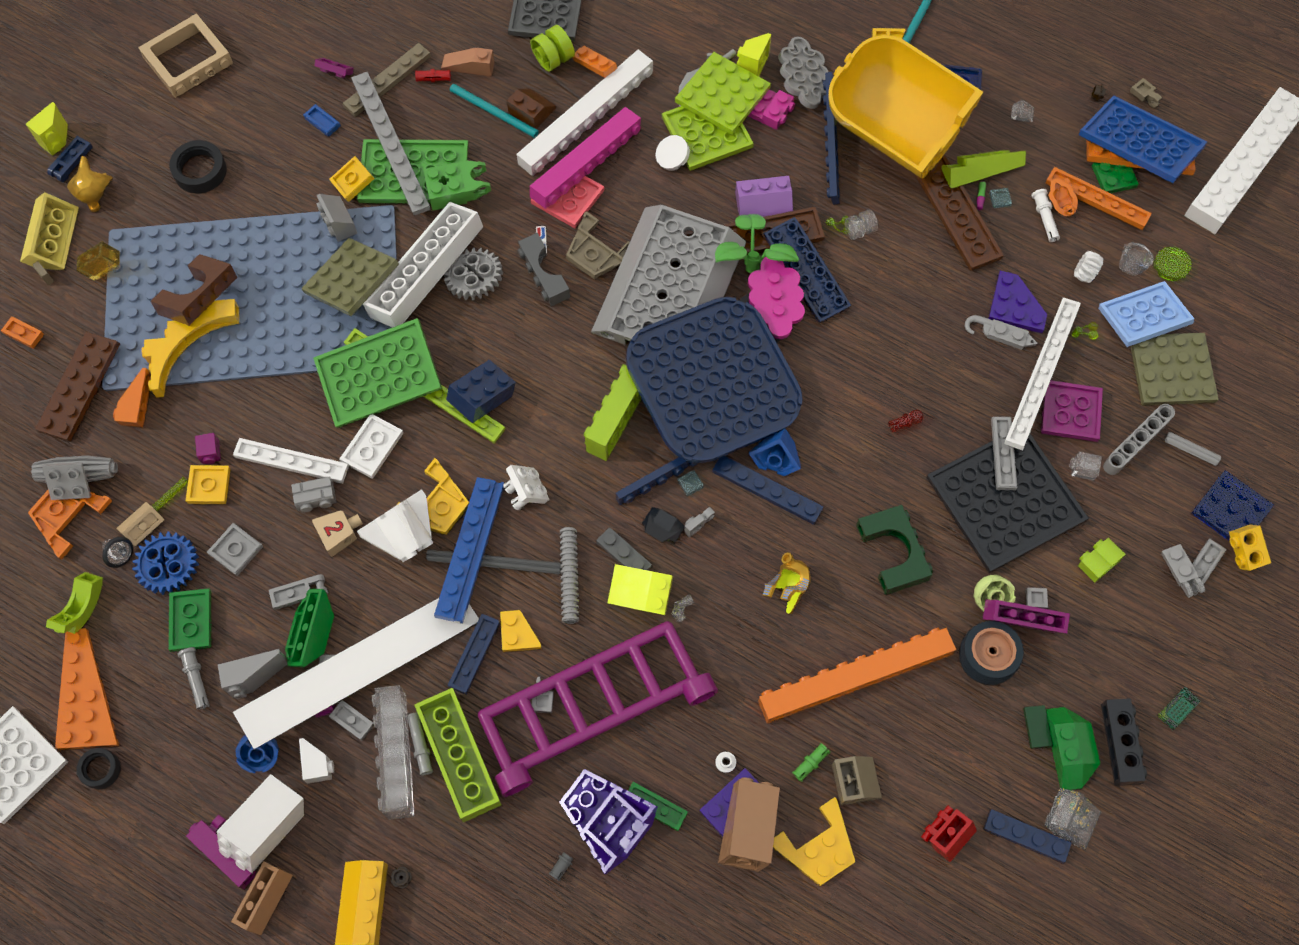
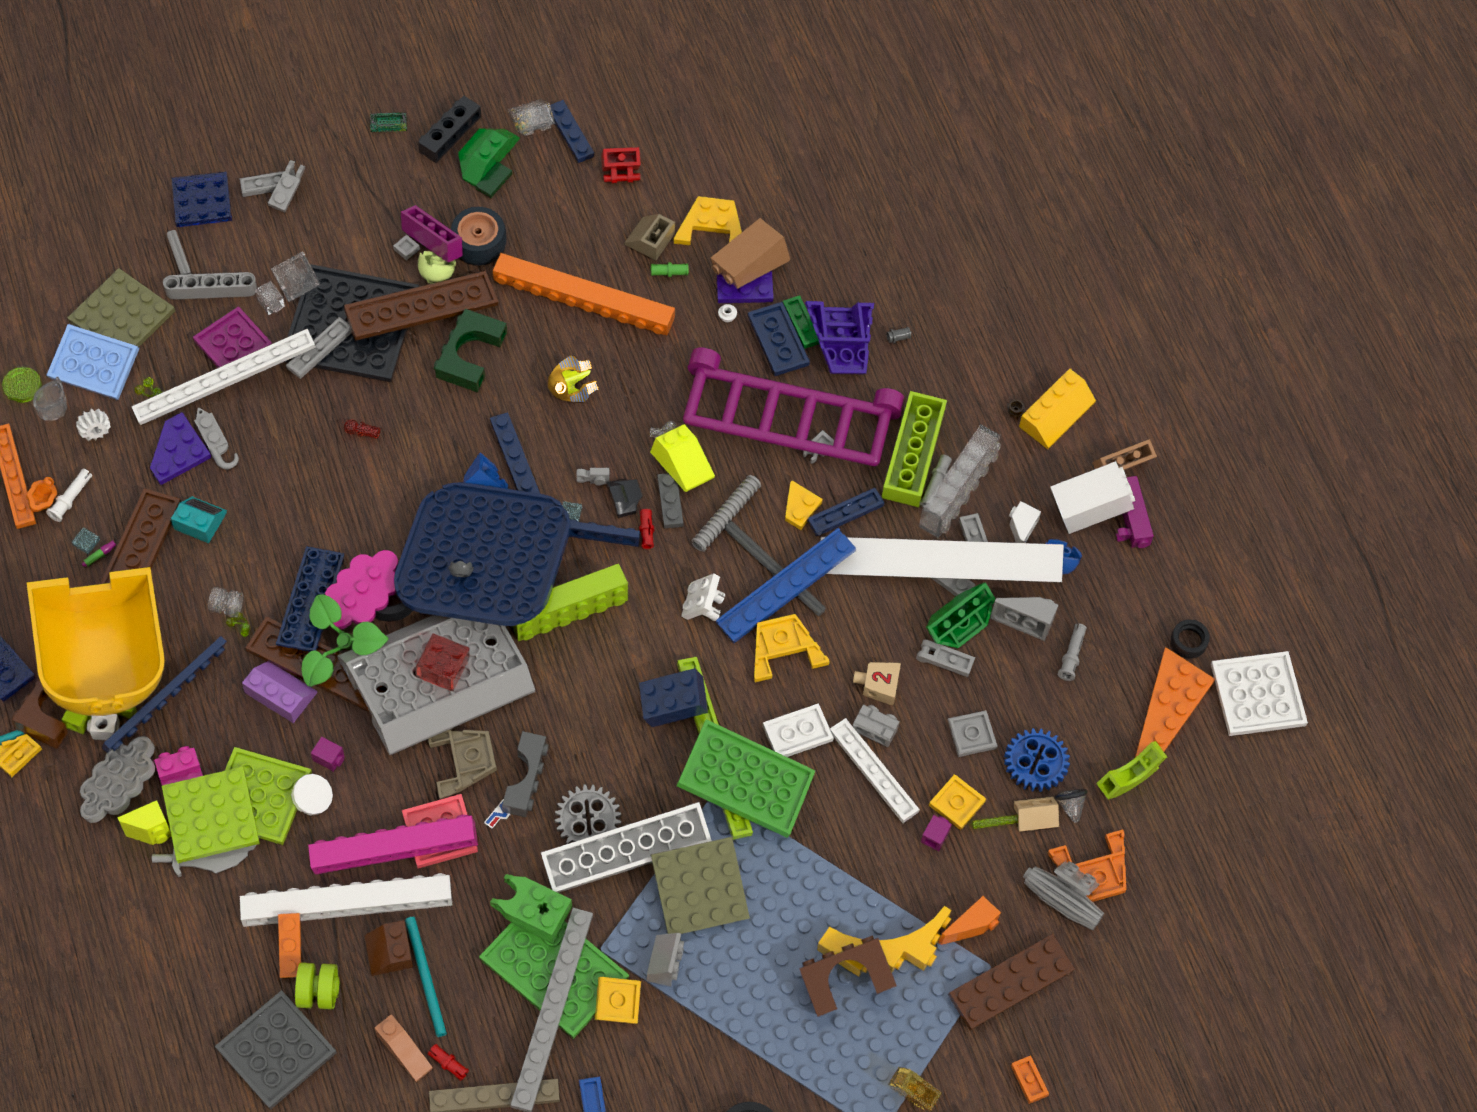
camera: 145 degrees left, 5 degrees down
(189, 619) = (1047, 699): green plate -> none
(401, 528) = (829, 631): white brick -> none
(620, 513) = (646, 528): none -> red pin
(661, 274) = (442, 662): none -> clear red brick
(661, 772) = (778, 339): none -> dark blue plate
(688, 184) = (328, 754): none -> magenta brick
(712, 342) = (461, 569): none -> dark grey plate
(945, 266) = (198, 518): none -> teal slope
(967, 550) = (420, 305): none -> reddish brown plate
(982, 165) = (78, 574): lime wedge -> none
(1086, 491) = (295, 276): none -> clear slope
(1101, 559) = (333, 235): lime brick -> none
(1254, 545) = (226, 162): yellow brick -> none

